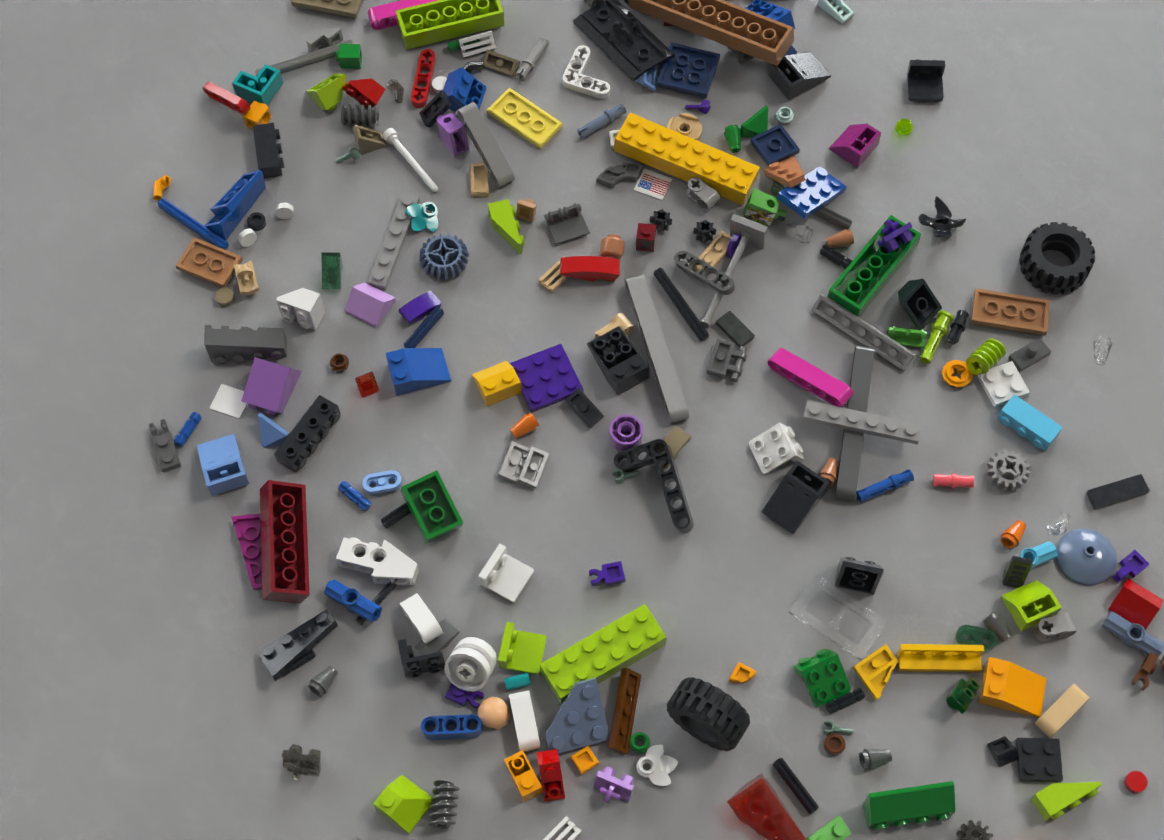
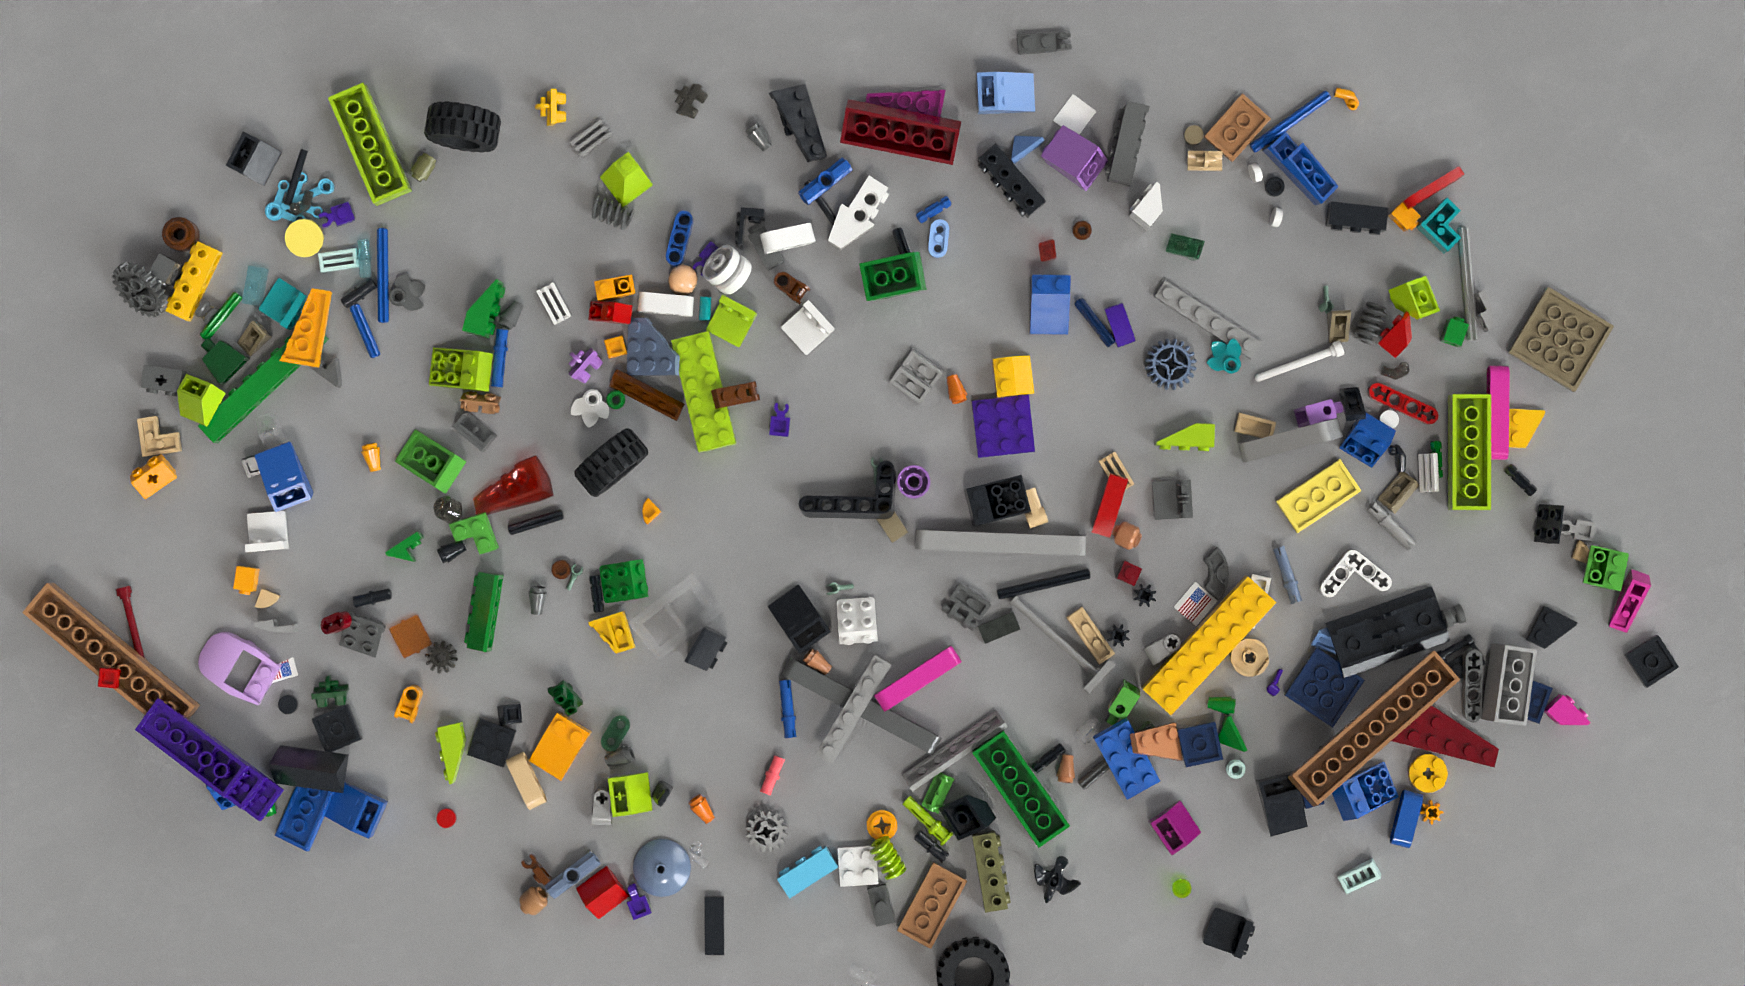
camera: 105 degrees right, 25 degrees up
(187, 429) = (1054, 68): blue axle -> none
(368, 303) = (1141, 276): lavender slope -> none
(470, 600) = (792, 287): none -> reddish brown piece
(526, 210) = (1200, 463): medium nougat tile -> none
(584, 408) = (956, 452): black plate -> none
(596, 619) = (734, 395): none -> reddish brown plate
(704, 272) = (1067, 617): dark grey beam -> none
(733, 245) = (1091, 658): dark purple tile -> none
(752, 476) = (836, 587): none -> sand green hand
(889, 241) = (1043, 817): dark purple hips -> none
(939, 658) = (606, 692): yellow fence -> none
(960, 272) = (990, 872): none -> olive brick
(1040, 554) = (674, 822): medium azure piece -> none

